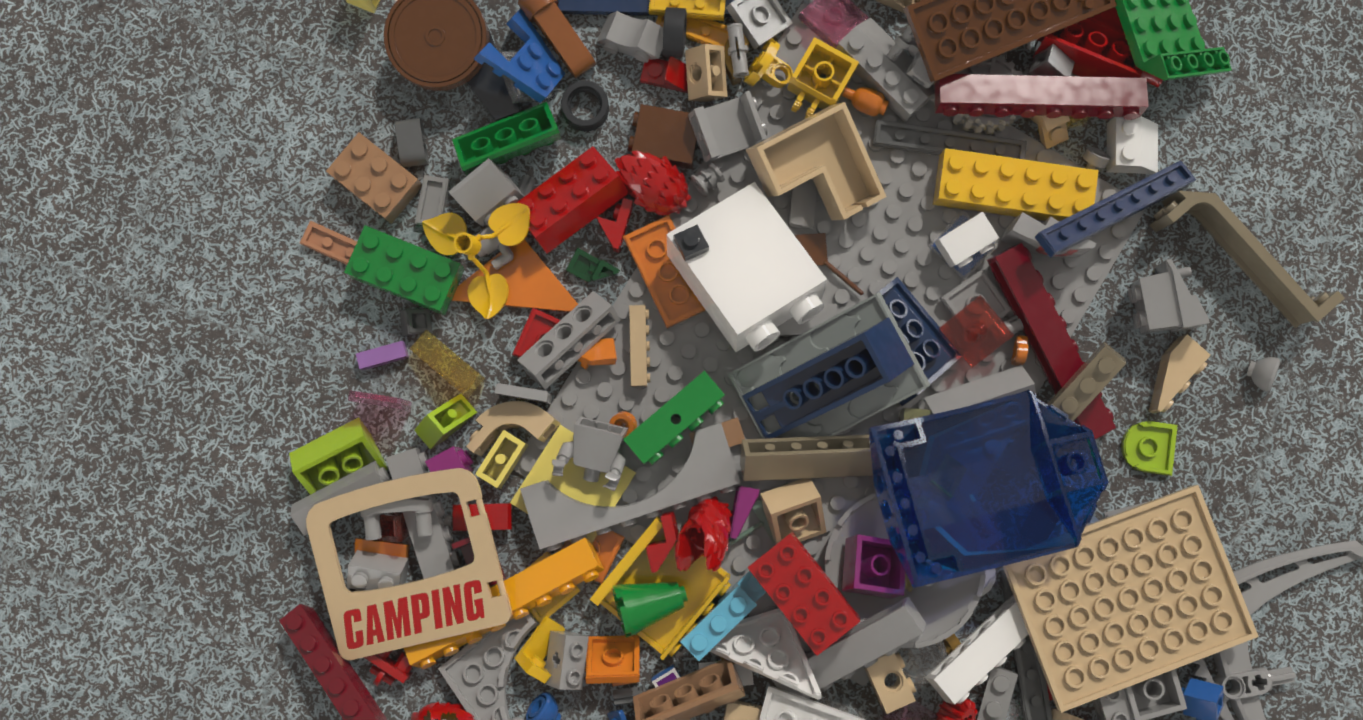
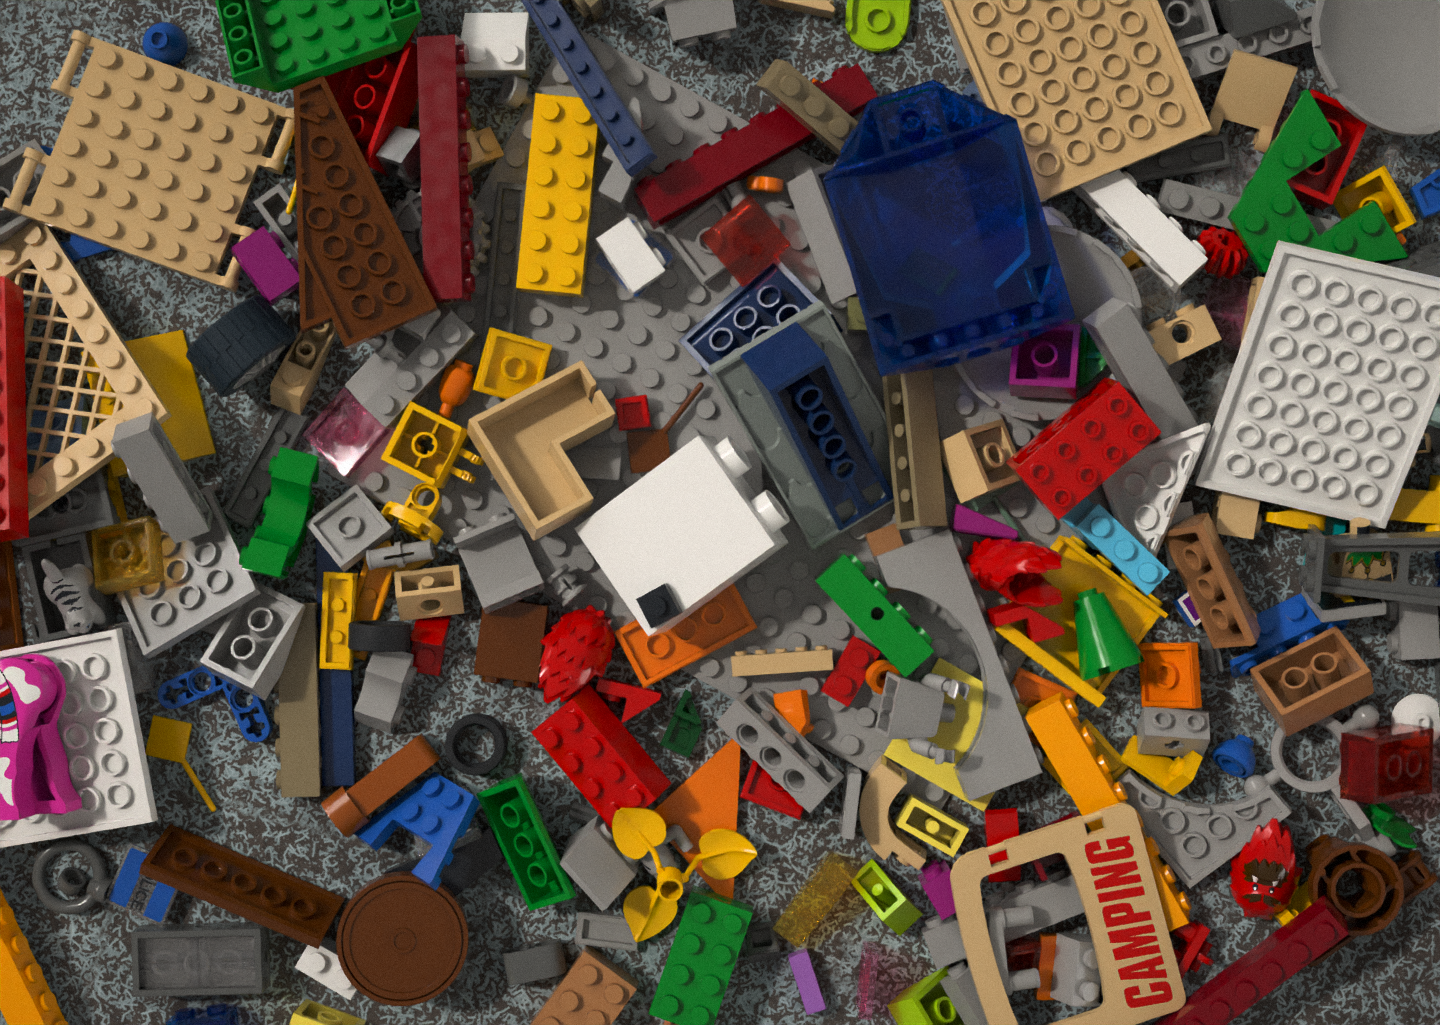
camera: 90 degrees left, 5 degrees up
(628, 399) = (850, 671): none -> red plate
(841, 238) = (633, 412): none -> red tile
(871, 604) = (1091, 360): none -> green tile
(885, 143) = (510, 364): none -> yellow tile

